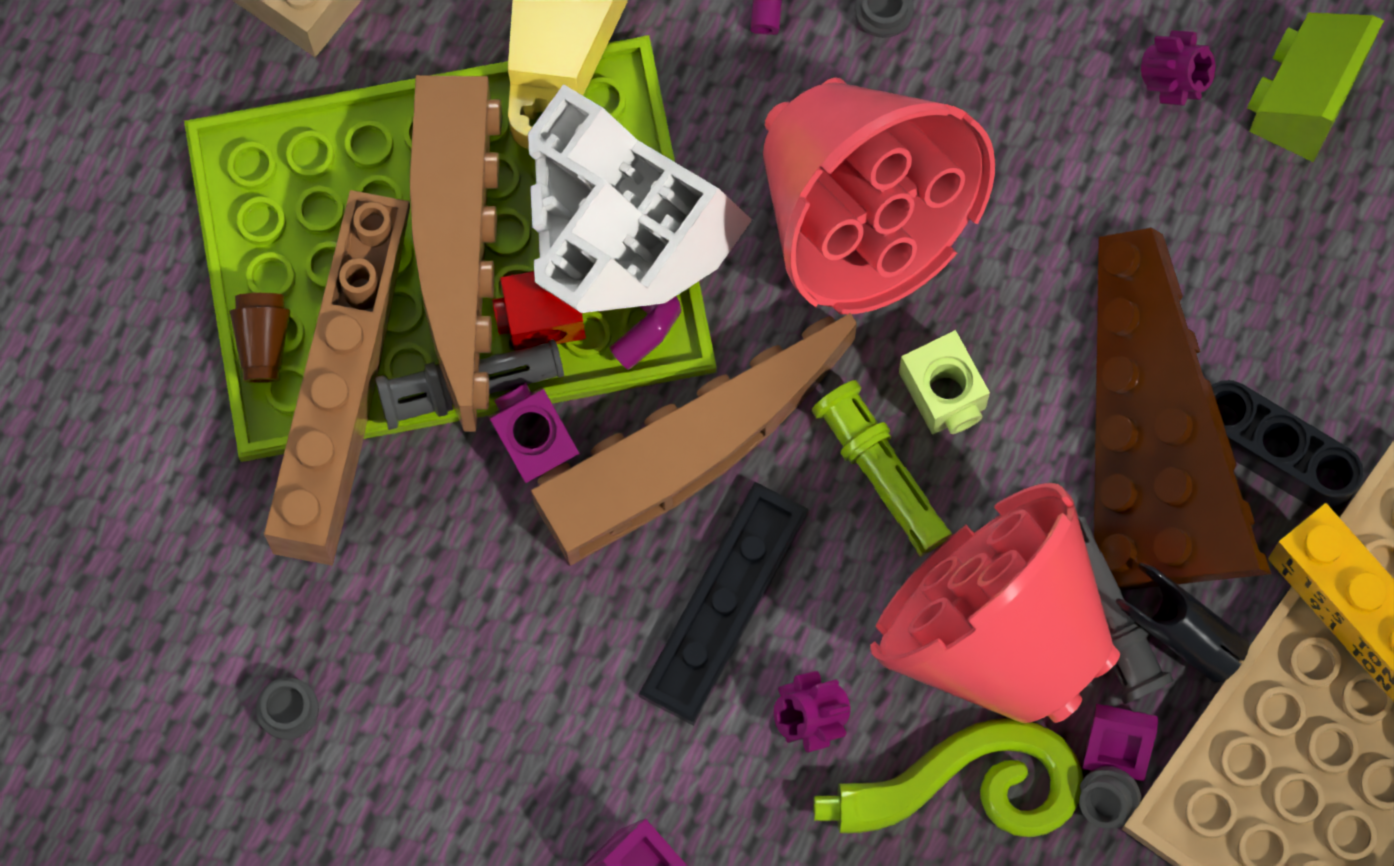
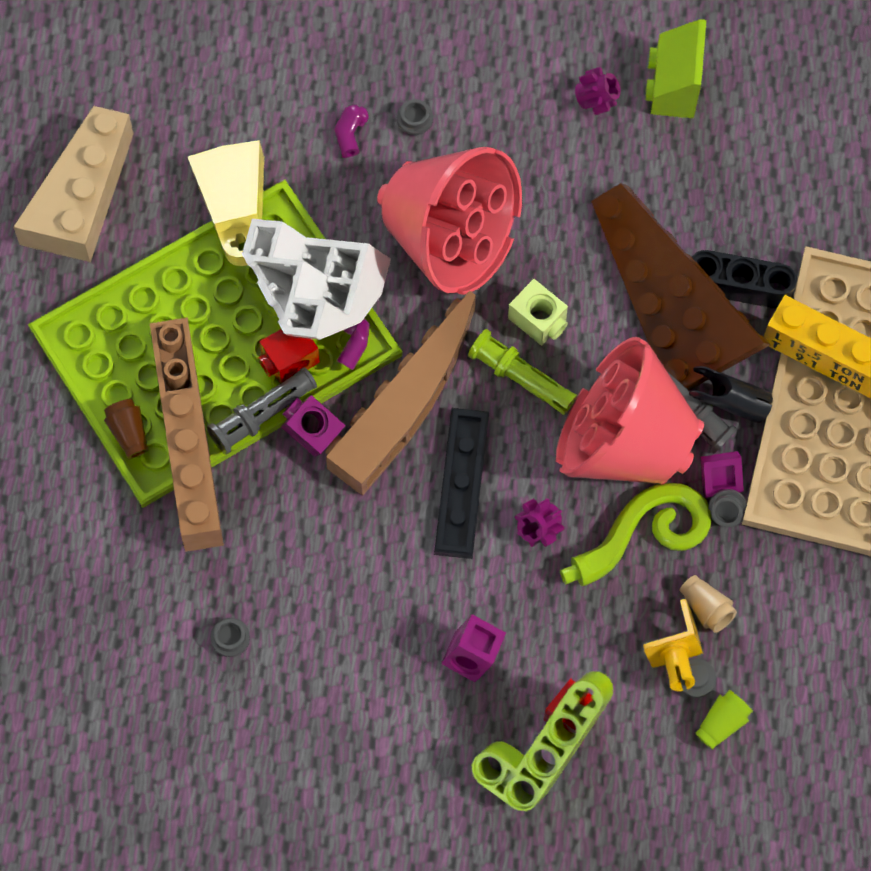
camera: 25 degrees left, 5 degrees down
(453, 223) = (219, 325): medium nougat slope -> none

